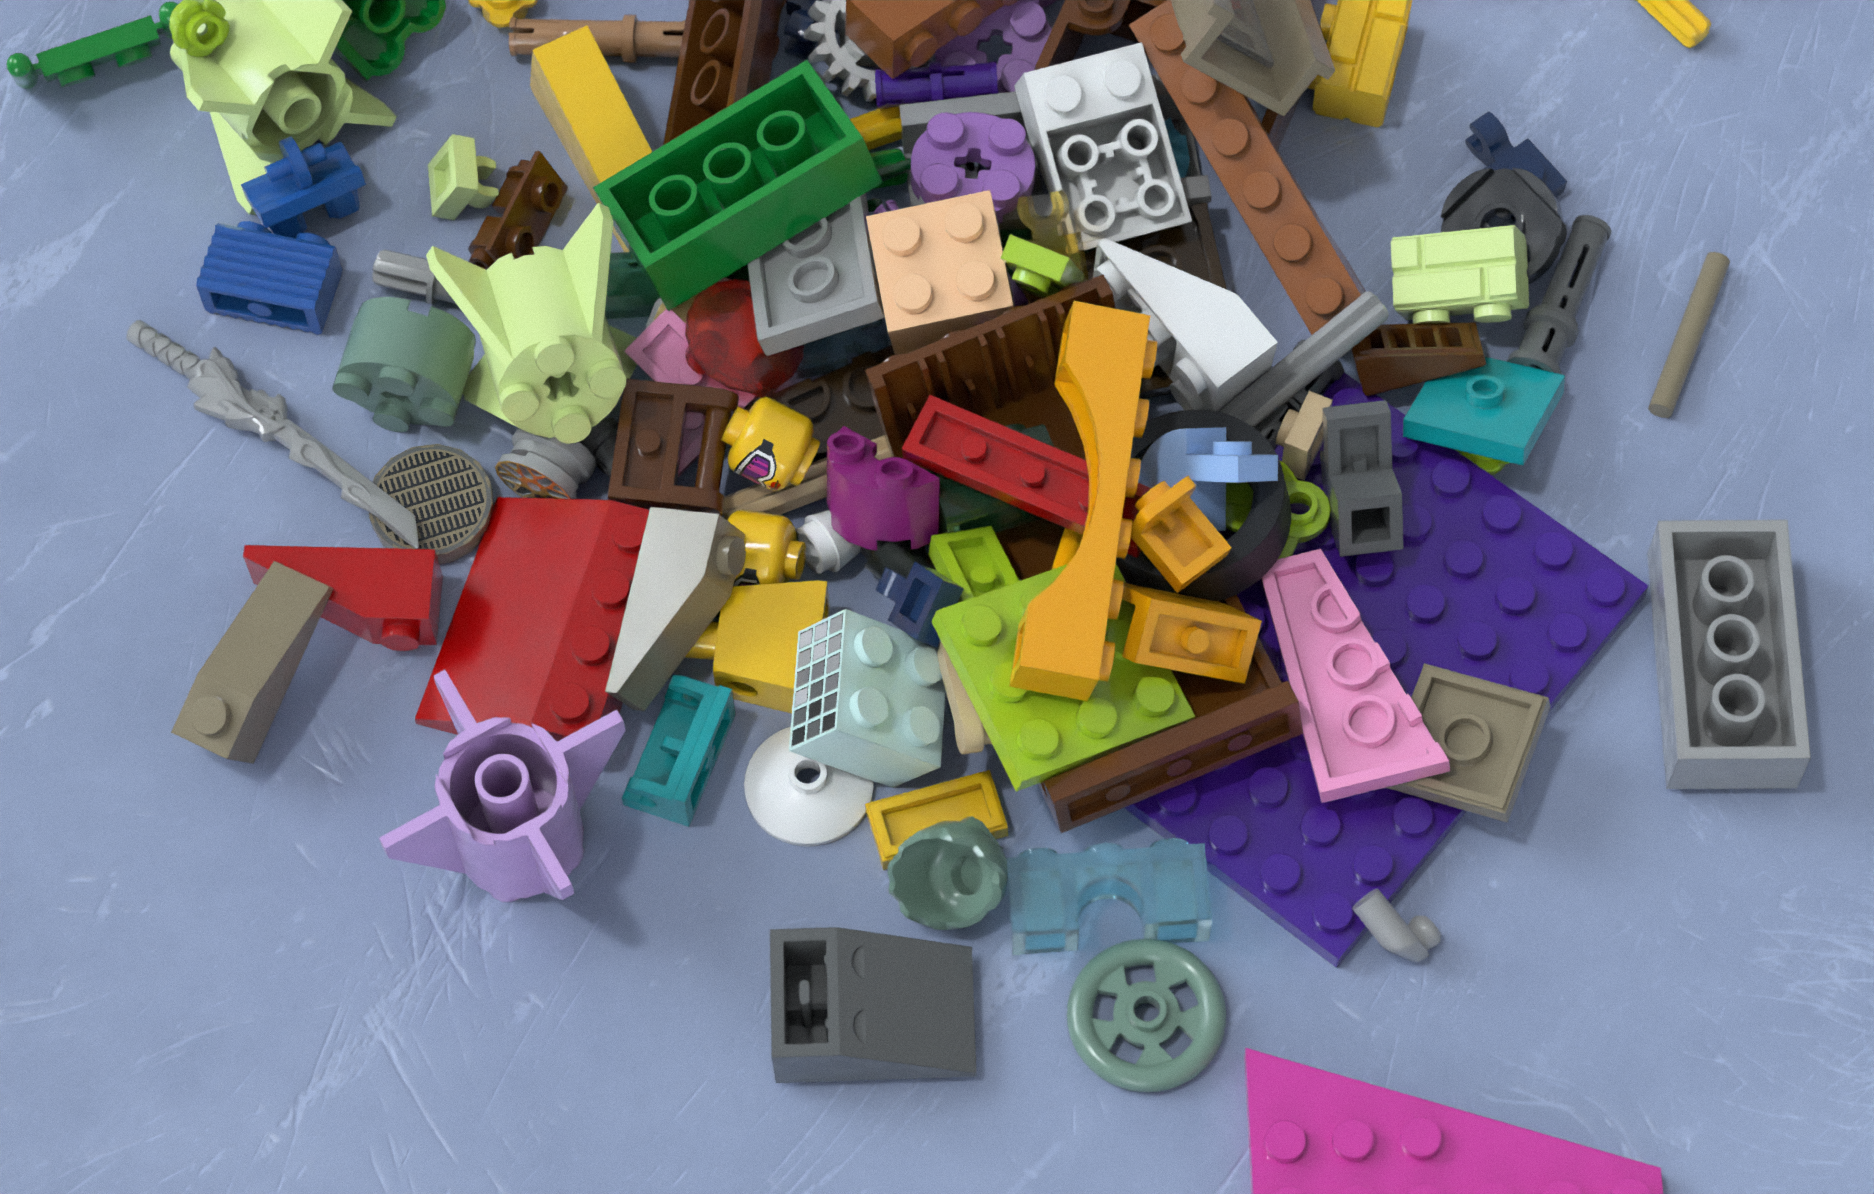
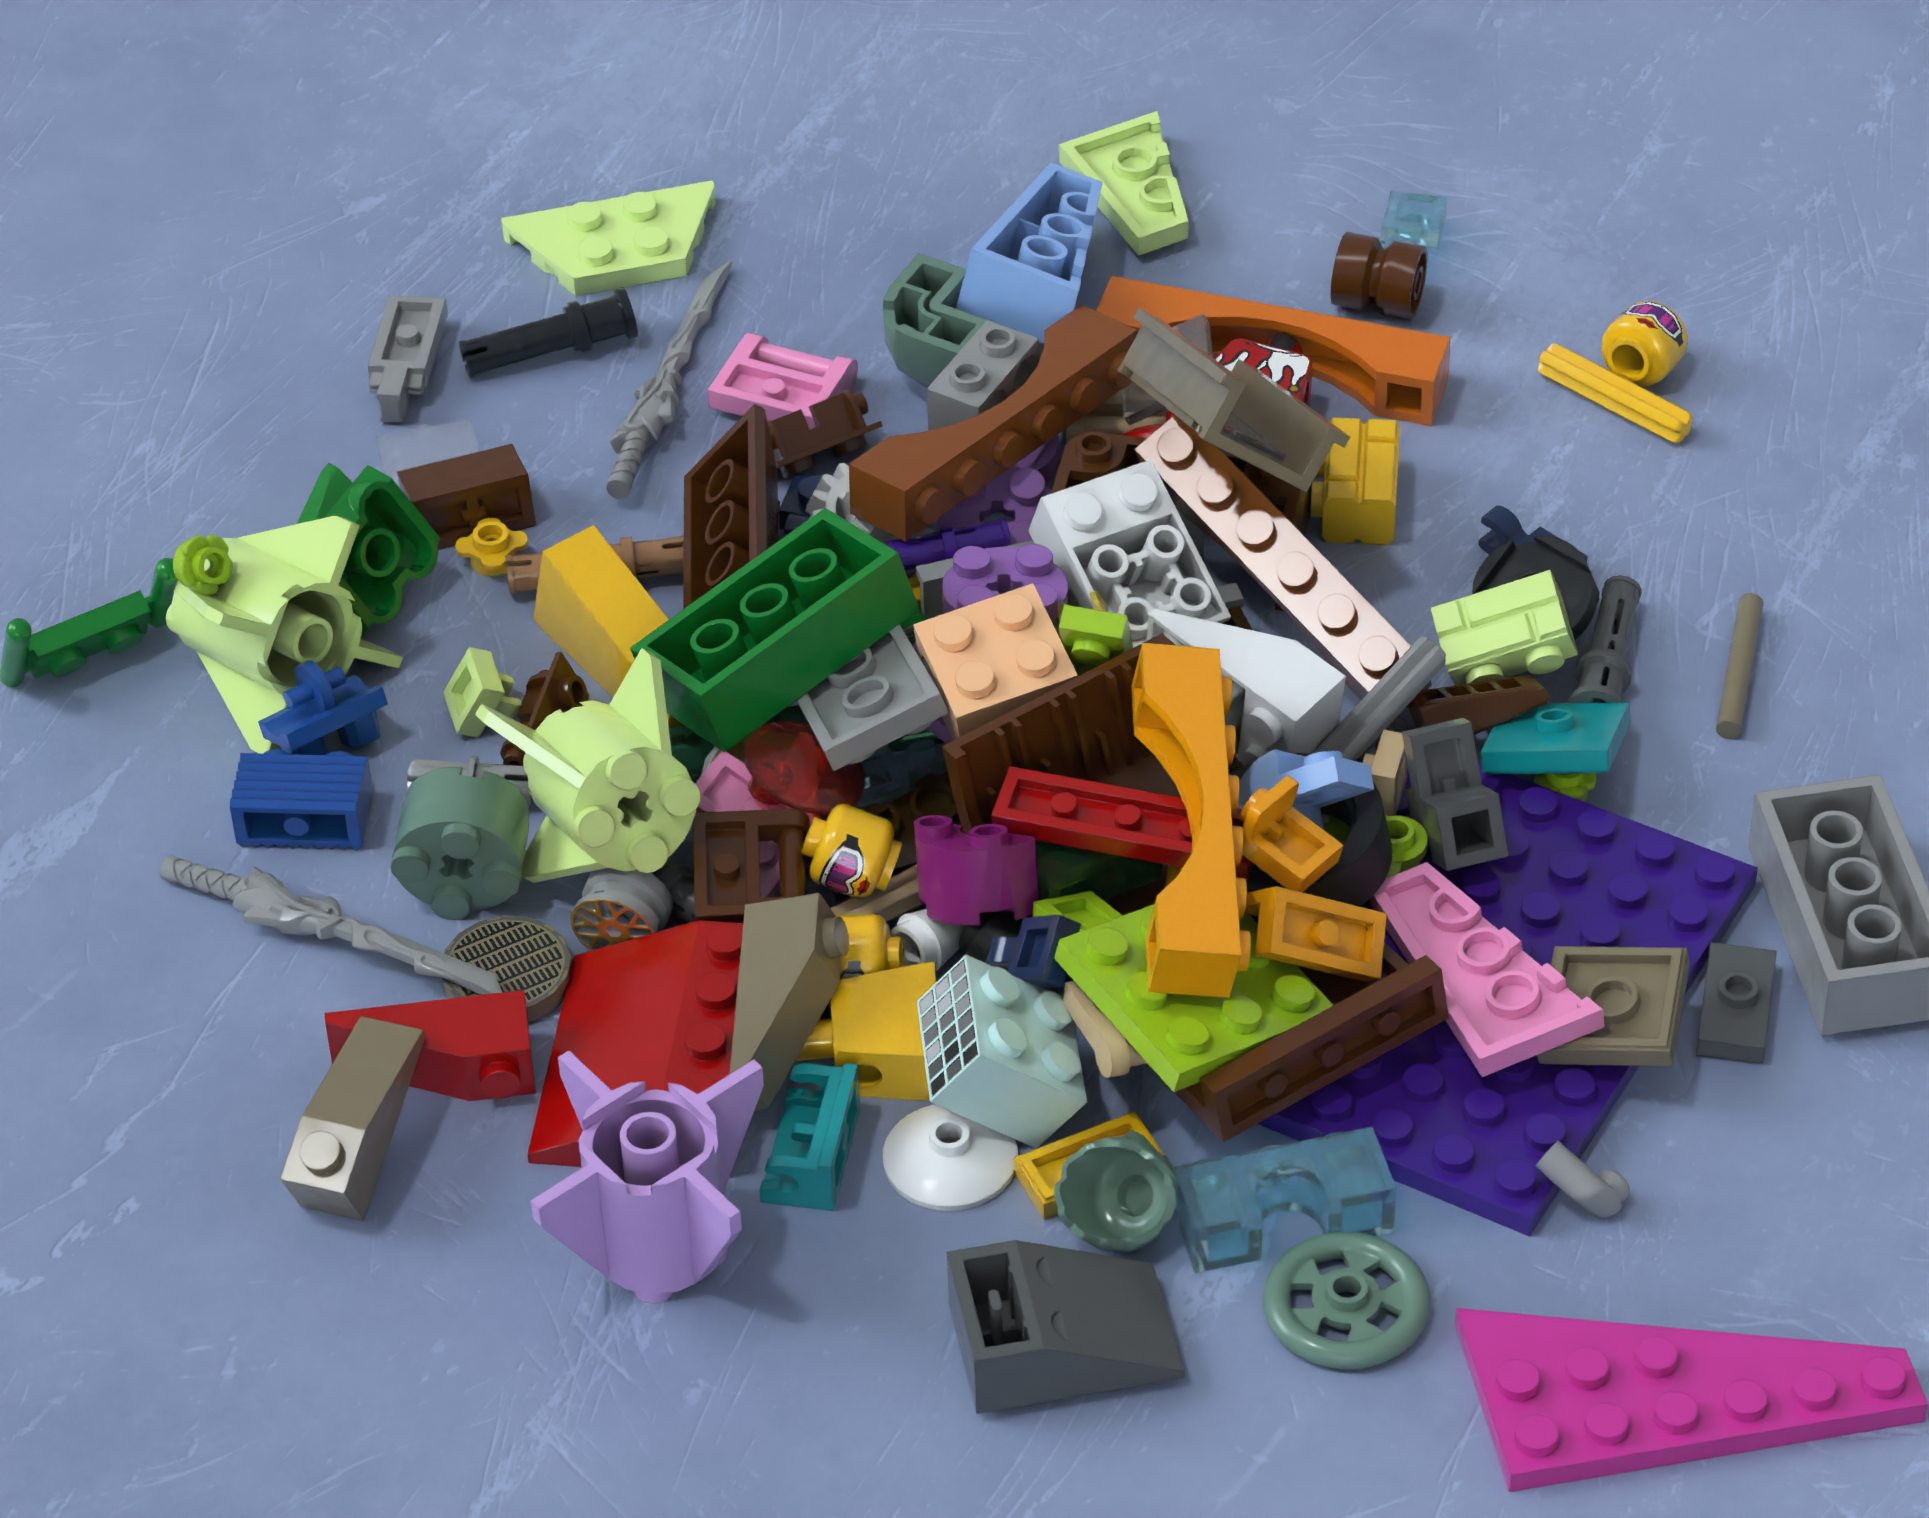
camera: 10 degrees left, 20 degrees down
(1593, 737) = (1736, 1003): none -> dark grey plate

